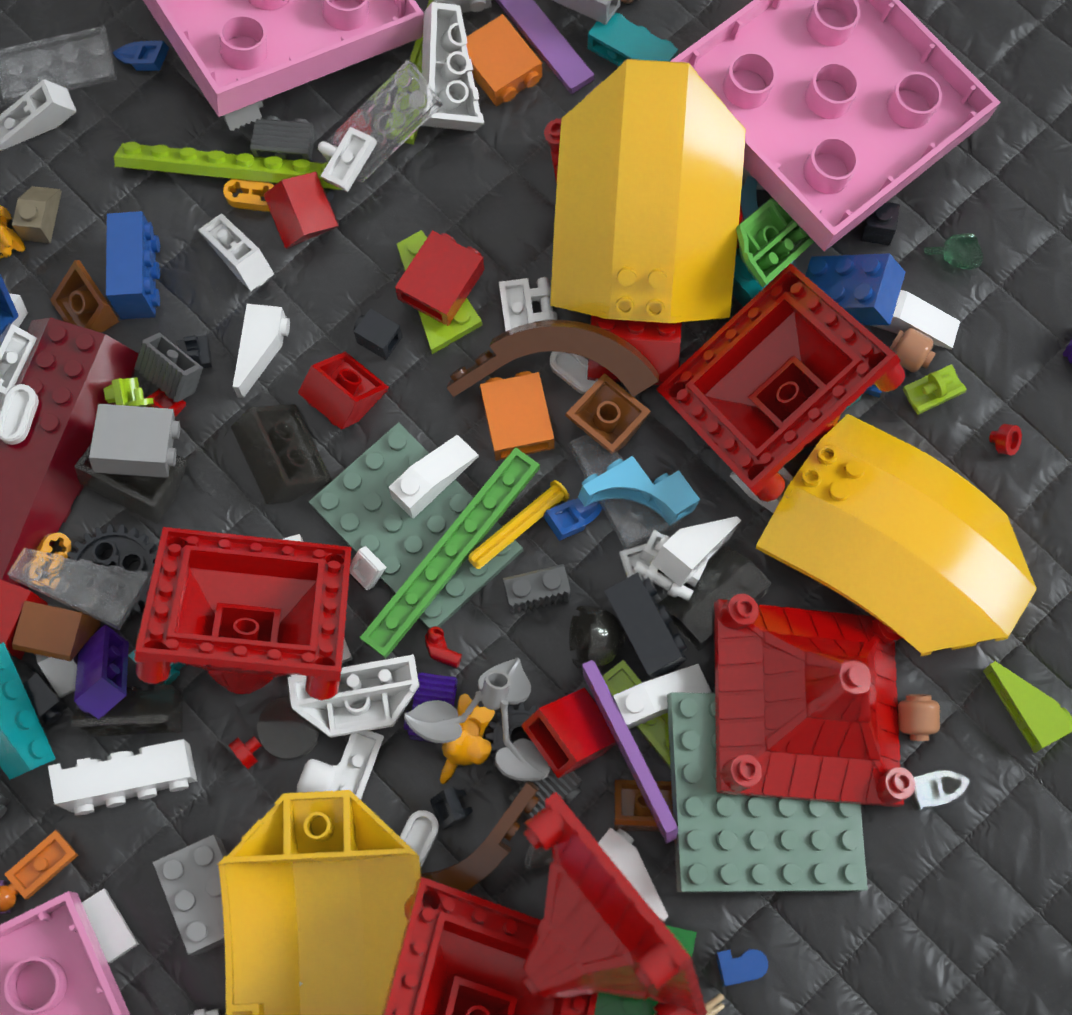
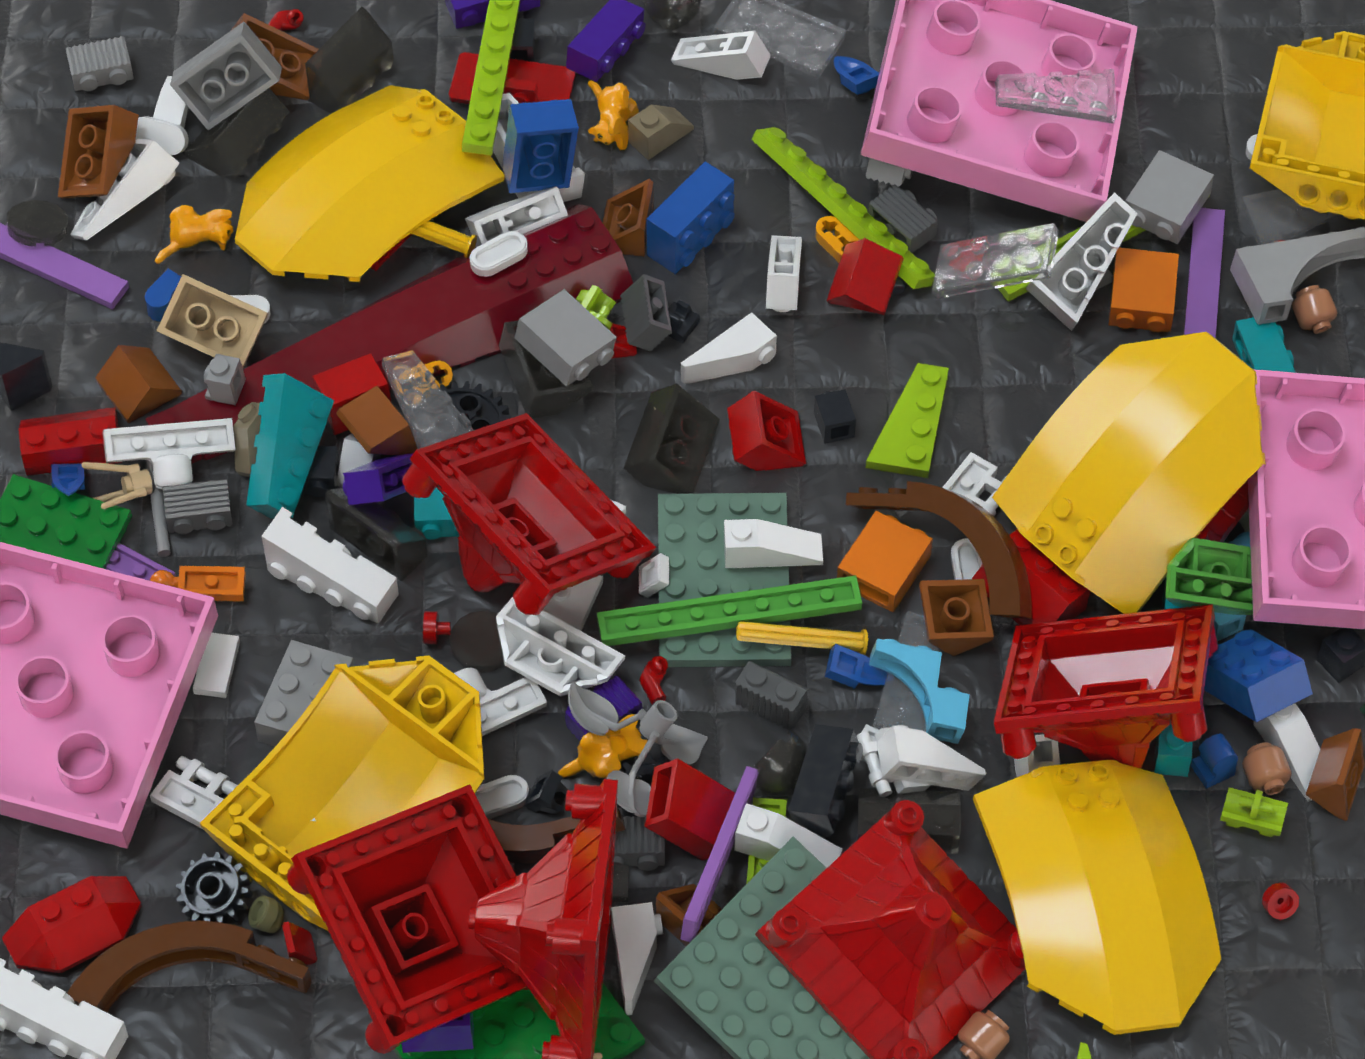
camera: 40 degrees right, 15 degrees down
(347, 158) = (936, 264): white plate -> none
(440, 277) = (924, 409): red brick -> none
(960, 312) = (1338, 773): none -> dark orange slope

